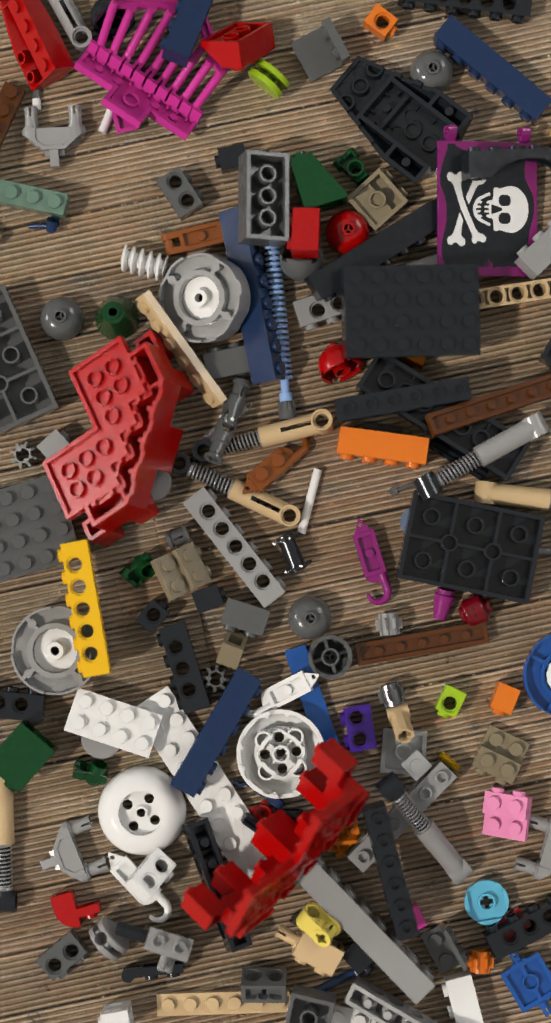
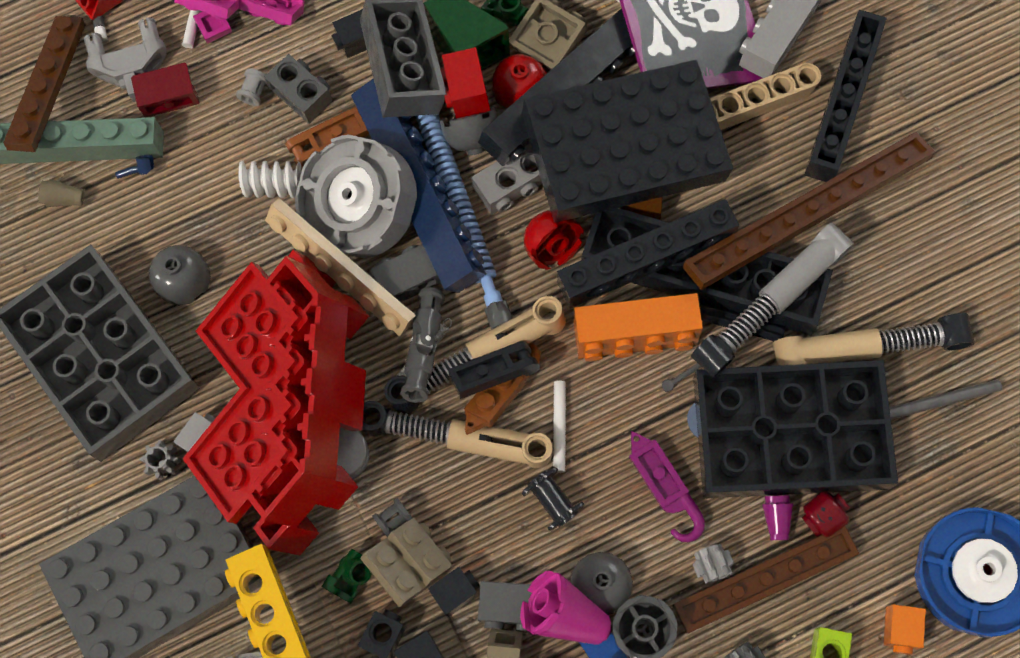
camera: 10 degrees left, 15 degrees down
(78, 168) = (164, 90): none -> dark red panel
(121, 324) = (245, 245): dark green cone -> none
(145, 182) = (252, 87): none -> light grey bush
(195, 506) = (407, 468): light grey brick -> none
(272, 453) = (493, 369): none -> black plate
(278, 633) = (563, 611): none -> dark pink cone

